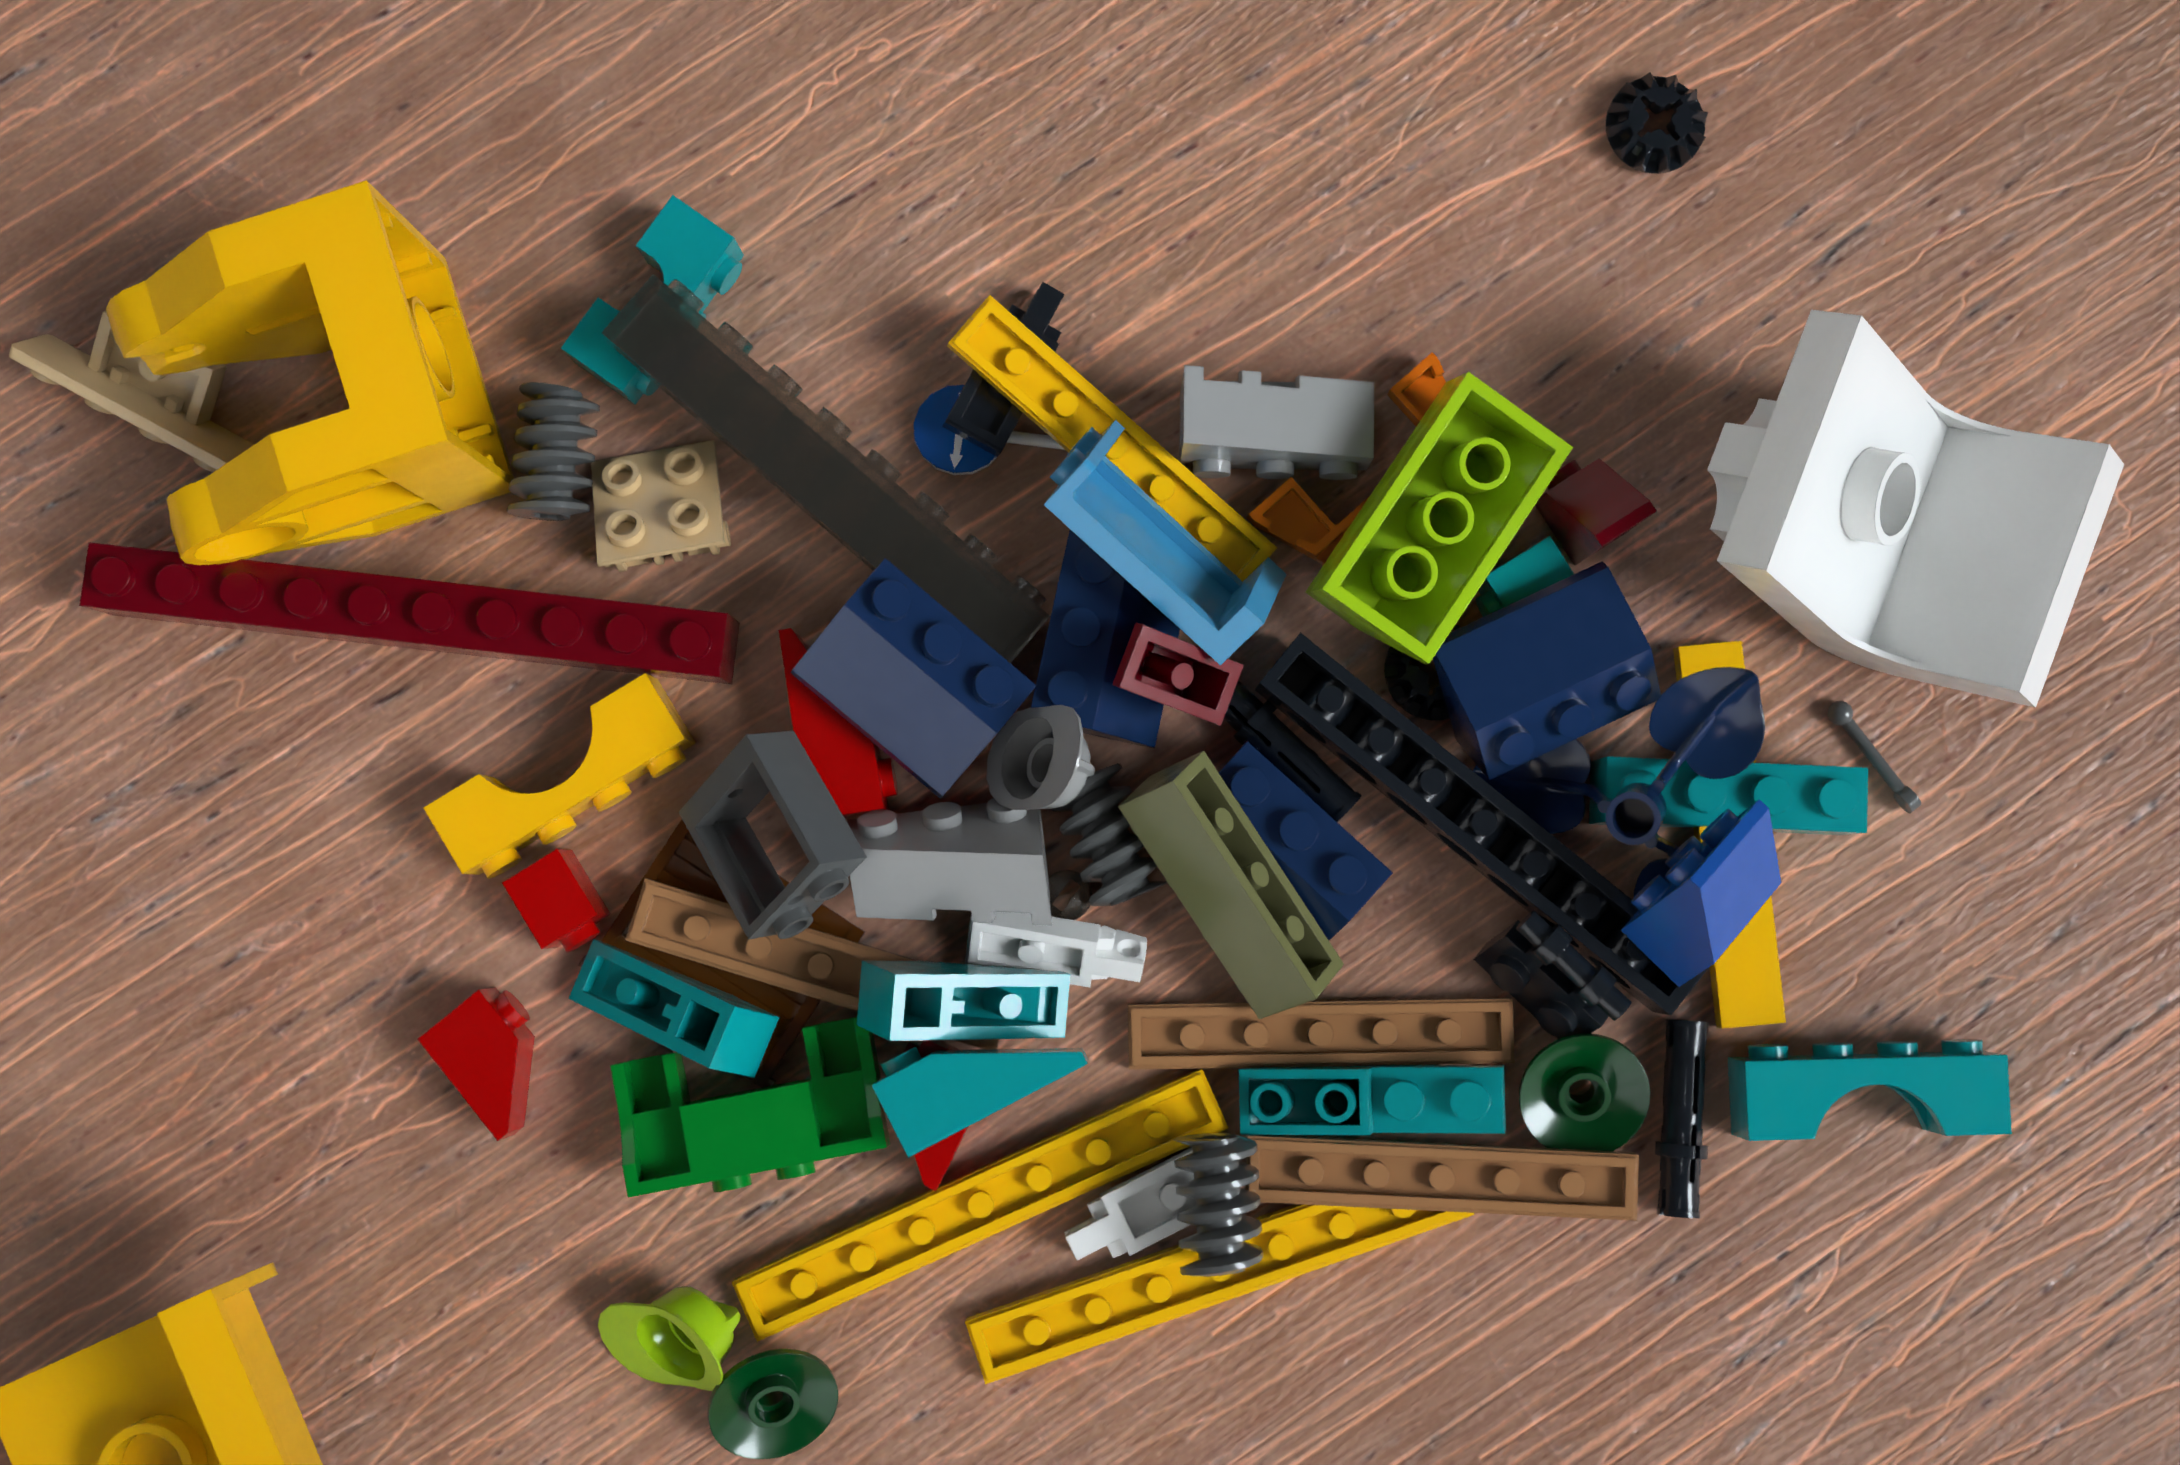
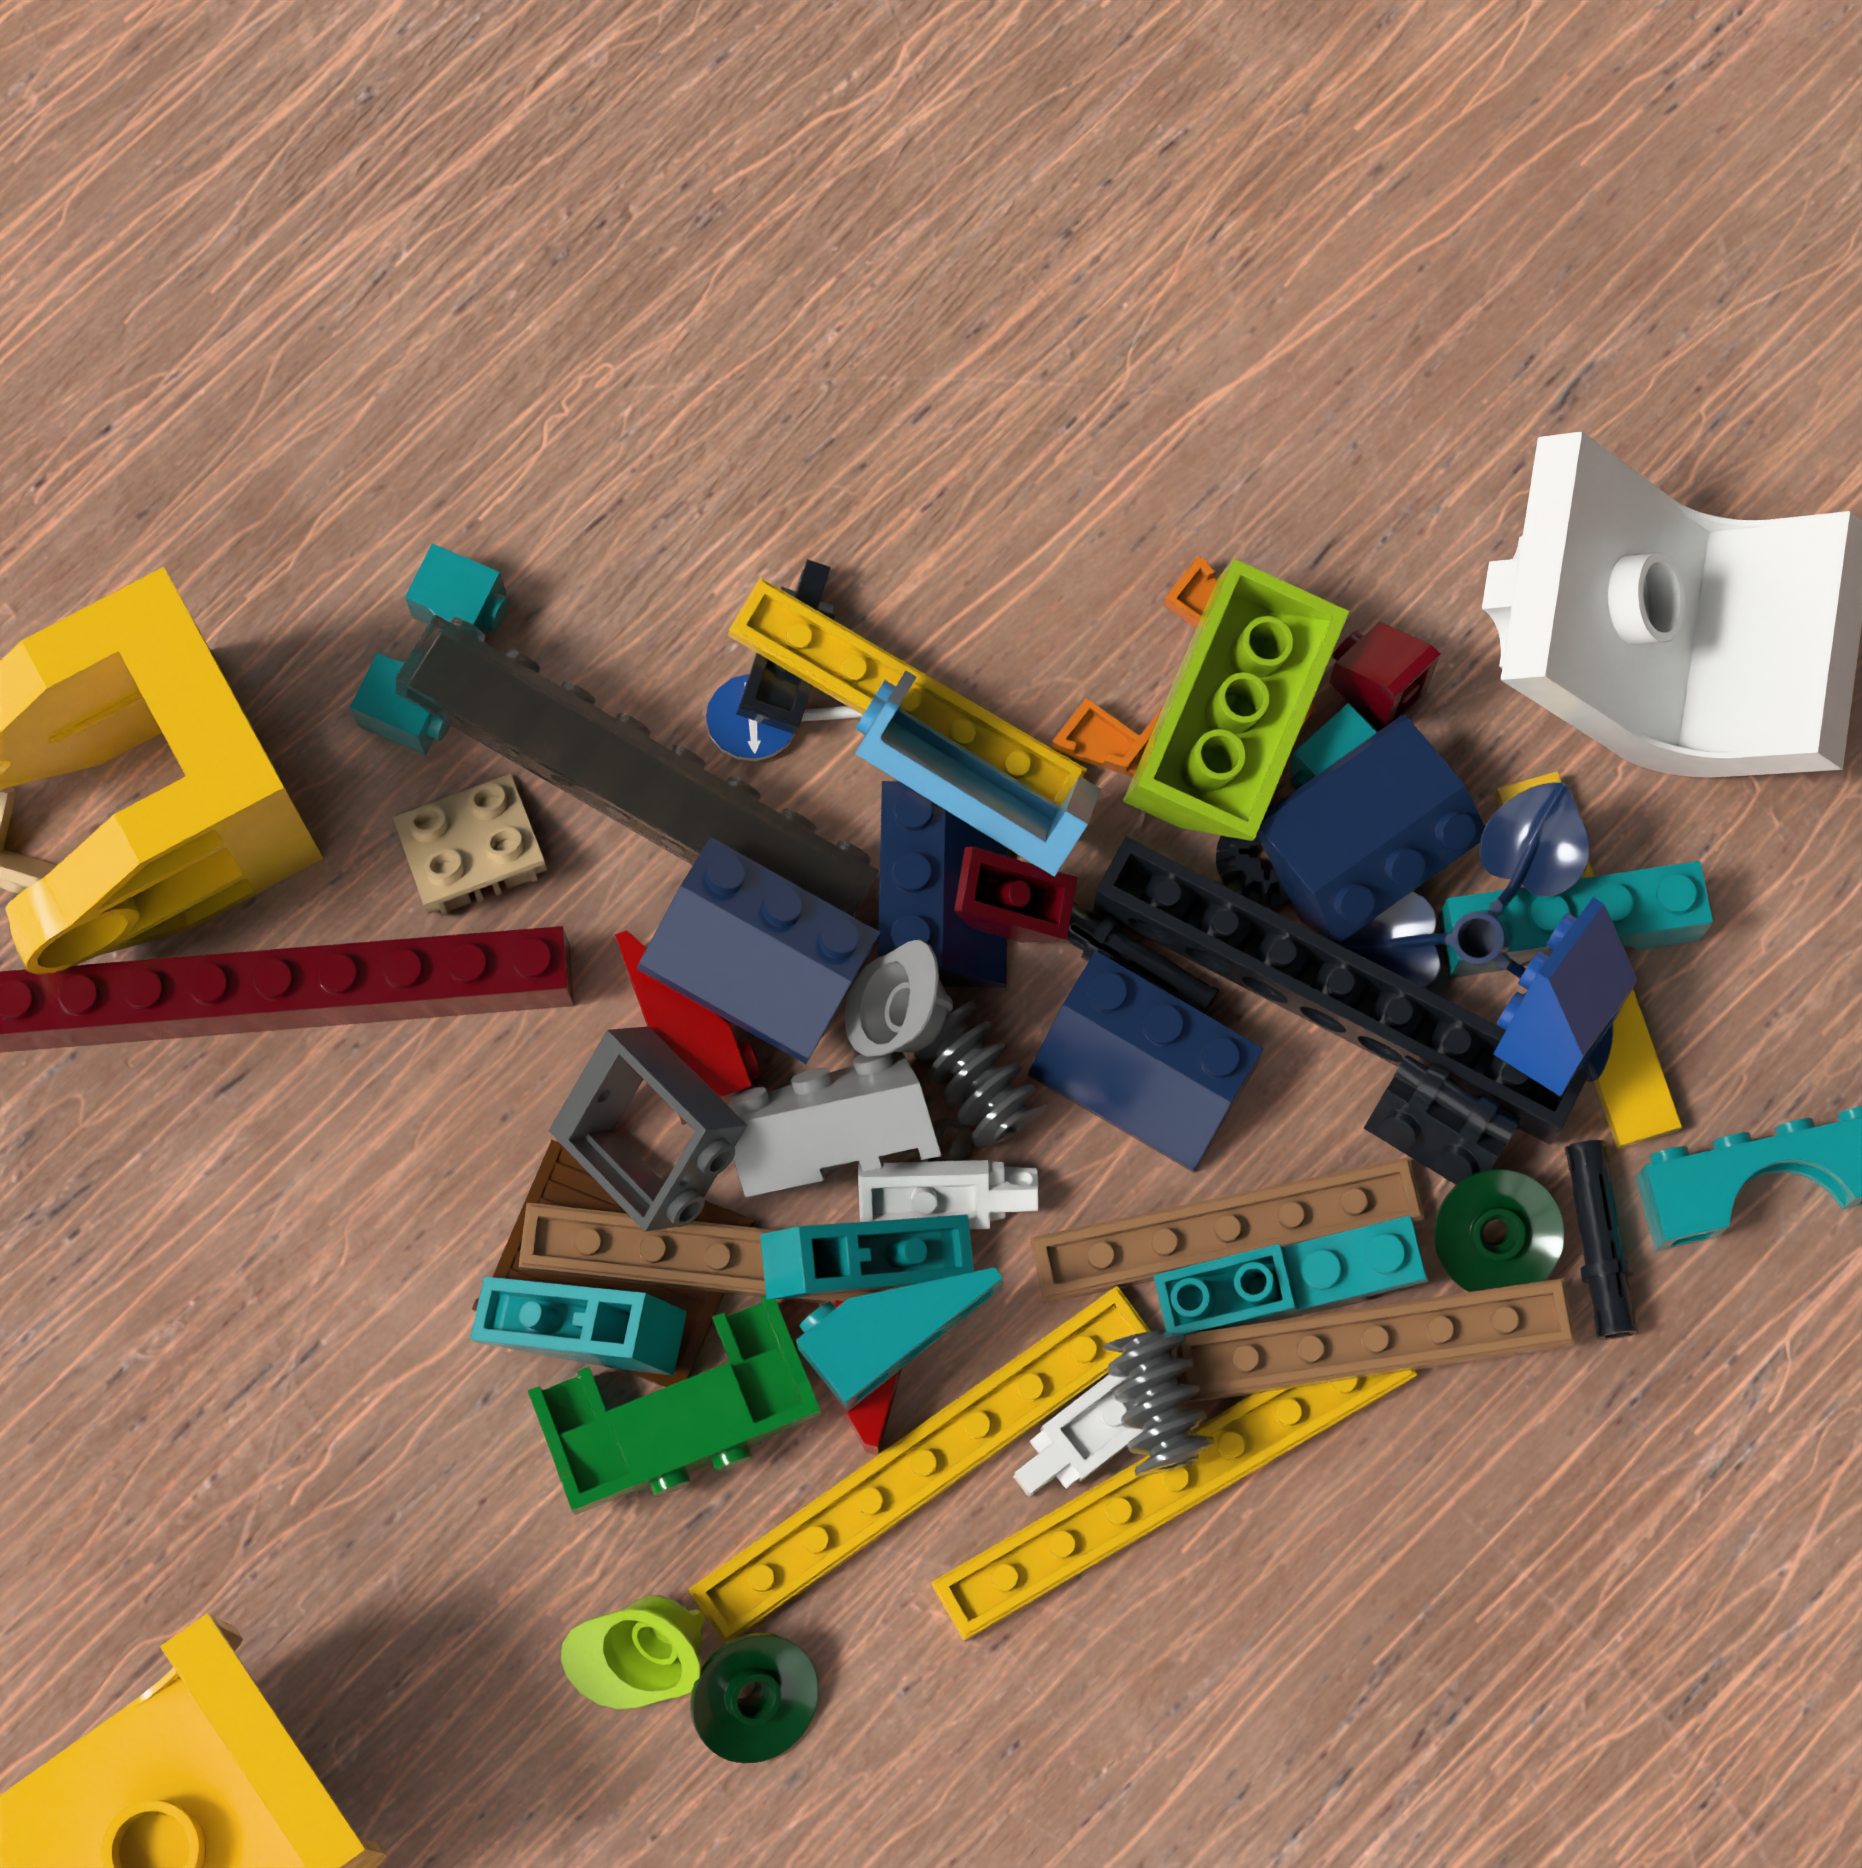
camera: 15 degrees left, 10 degrees down
(487, 1057) = (399, 1408): red slope -> none
(552, 452) = (355, 811): dark grey piece -> none
(557, 901) = (443, 1244): red brick -> none
(631, 735) = (366, 1178): yellow arch -> none
(1231, 886) = (1109, 1092): olive brick -> none
(1275, 425) = (1060, 652): light grey wedge -> none
(1655, 151) = (1374, 329): black gear -> none
(1841, 714) = (1671, 824): dark grey hinge -> none

